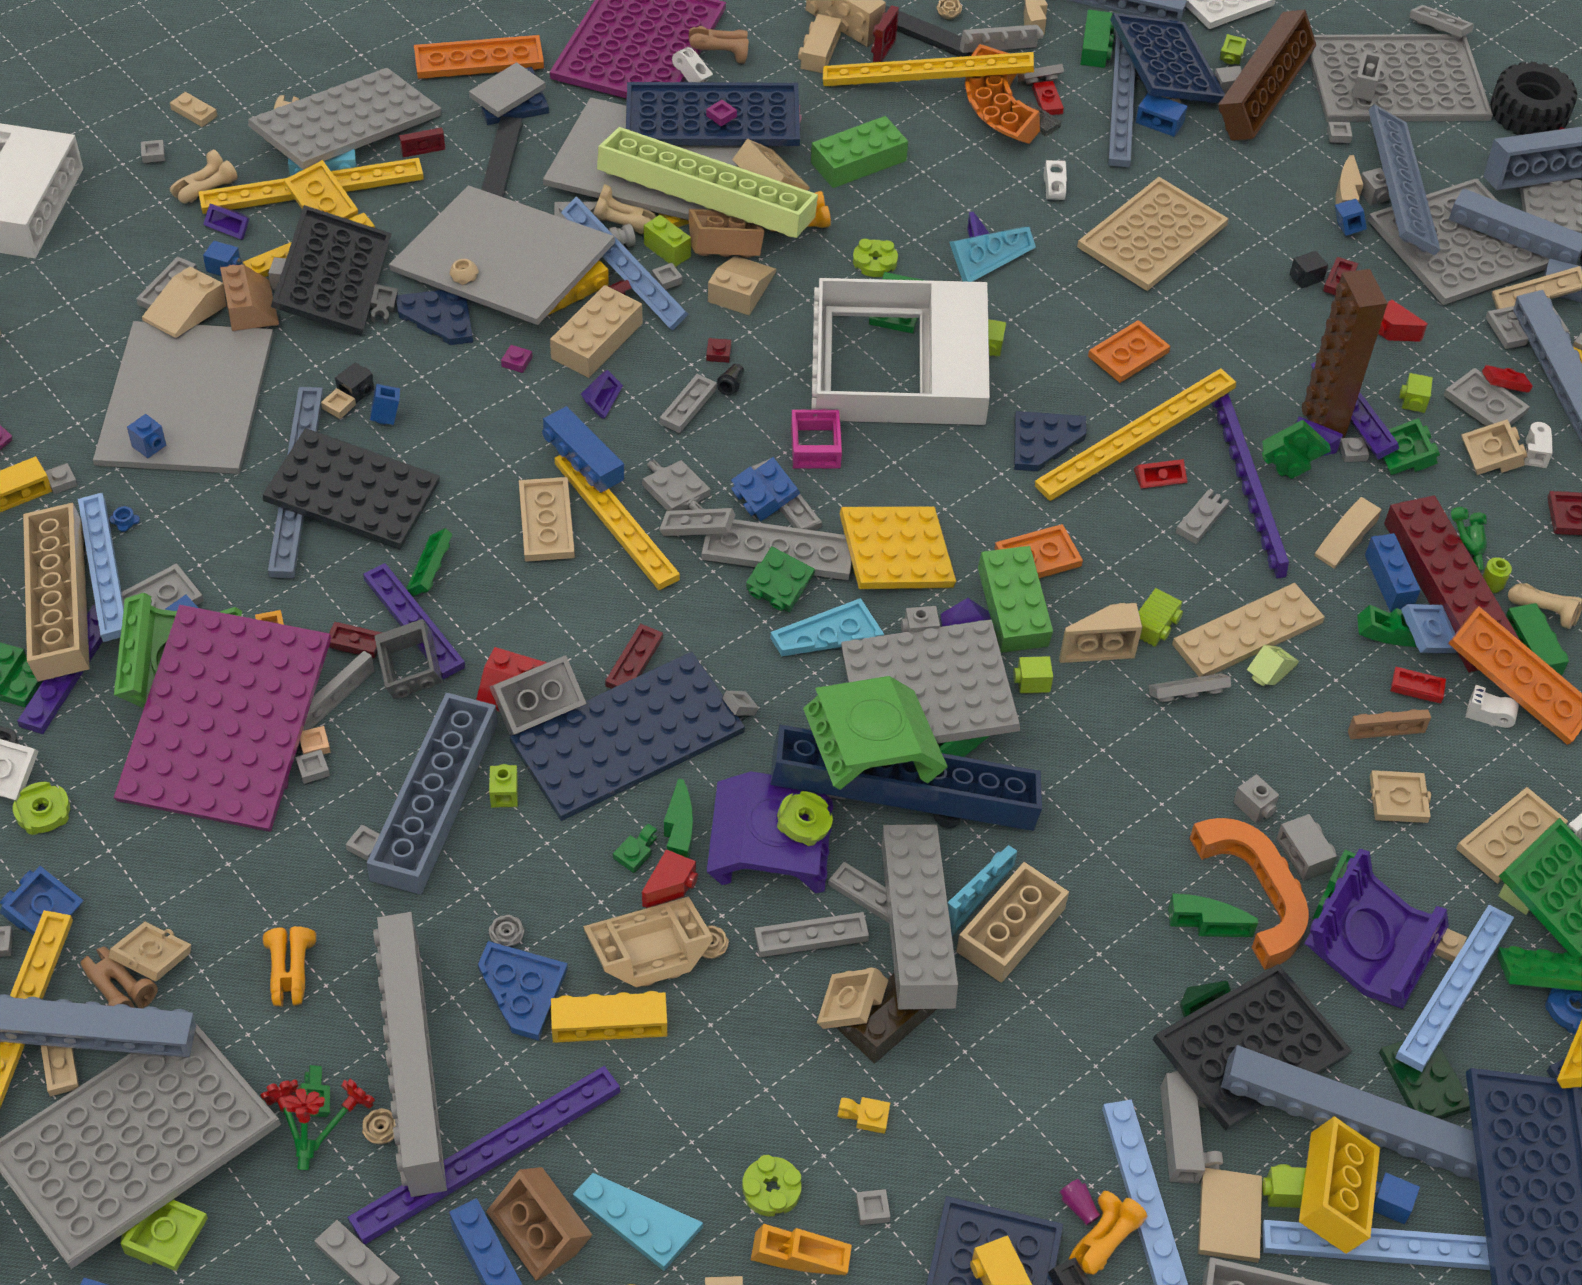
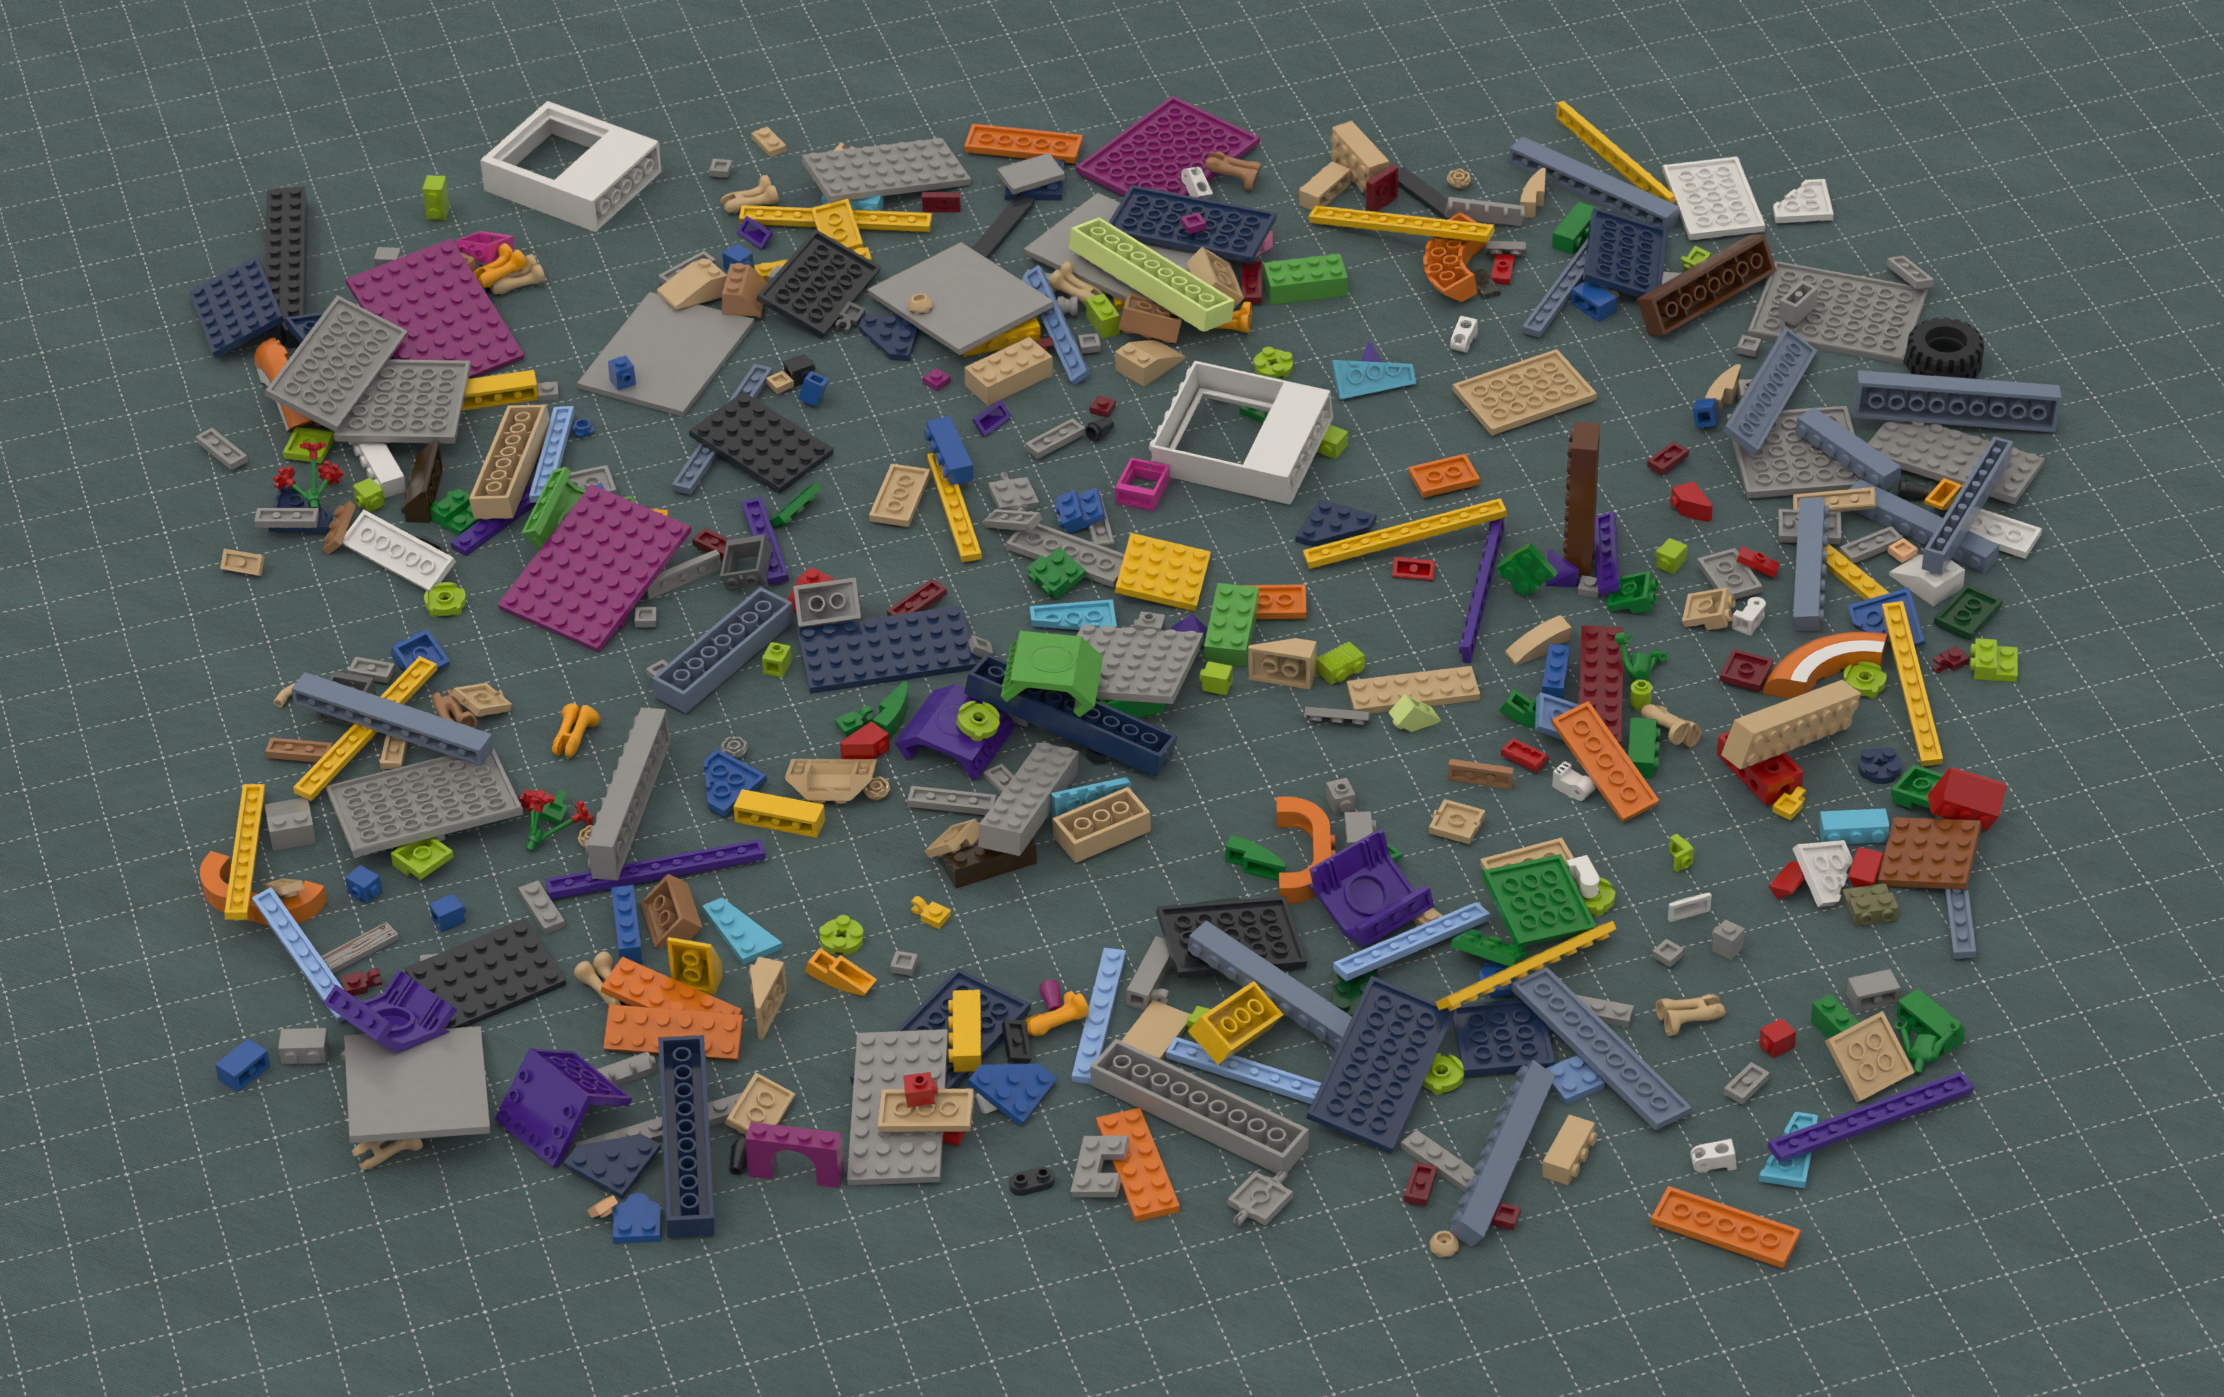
camera: 25 degrees right, 10 degrees down
(314, 740) = (655, 599): light nougat plate -> none
(803, 166) = (1252, 282): none -> dark red plate
(1202, 517) = (1428, 606): light grey hinge -> none
(1308, 269) = (1641, 446): black brick -> none
(1395, 1198) = (1277, 1047): blue brick -> none

